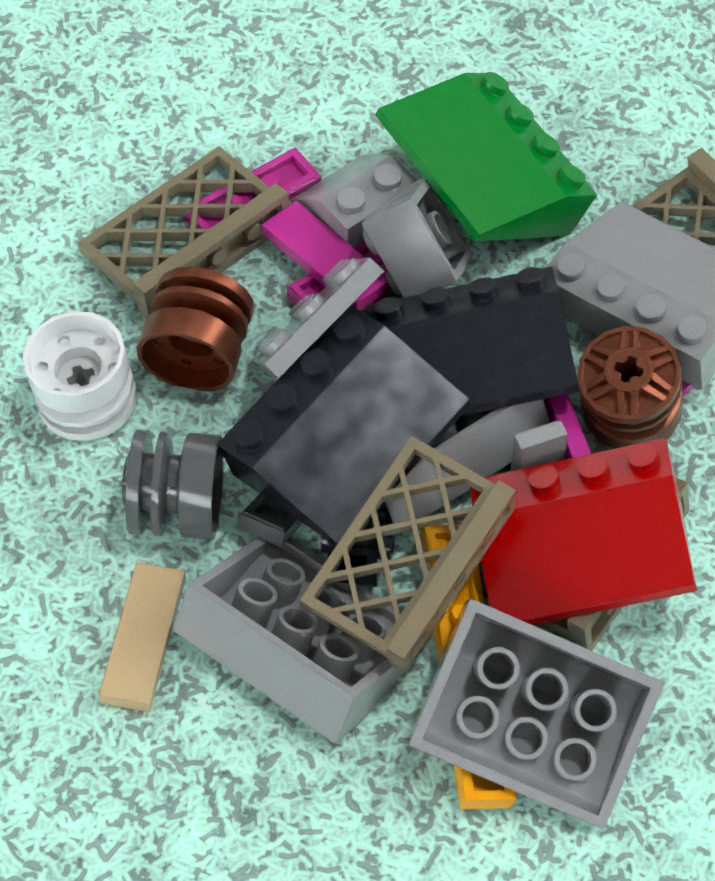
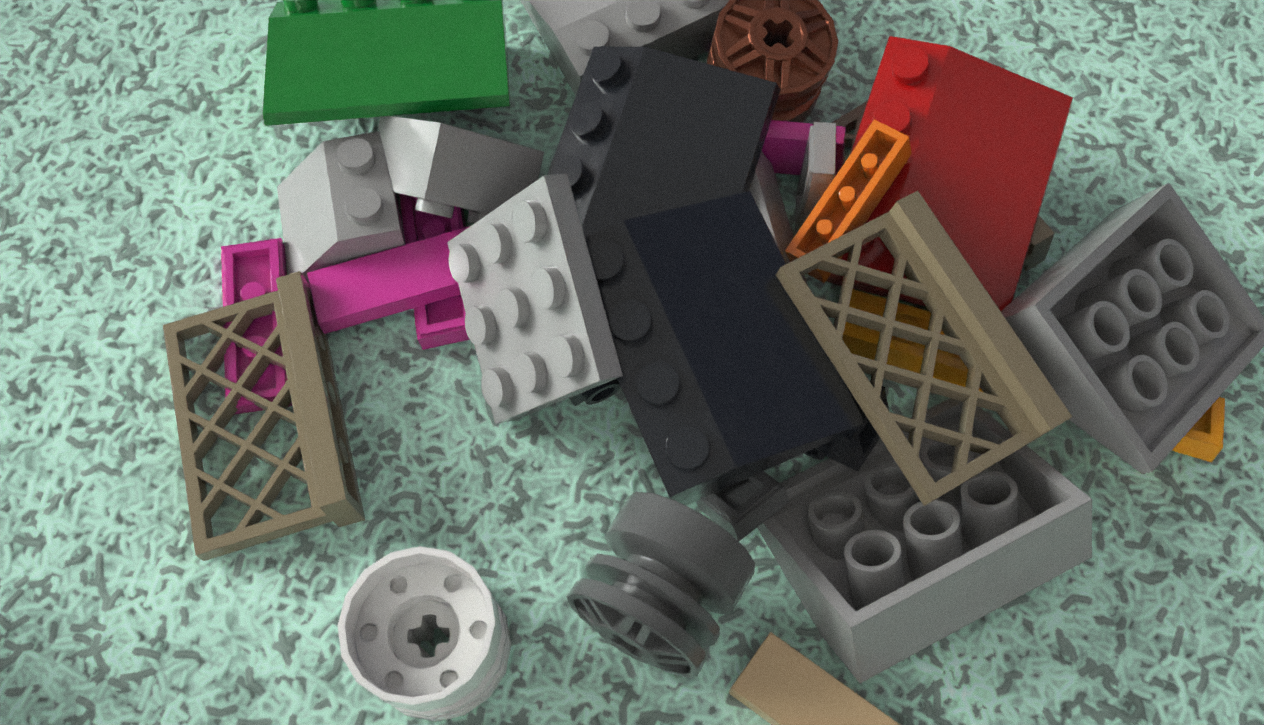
camera: 65 degrees left, 5 degrees up
(195, 328) = (436, 459): copper wheel -> none
(515, 465) = (853, 191): none -> orange piece

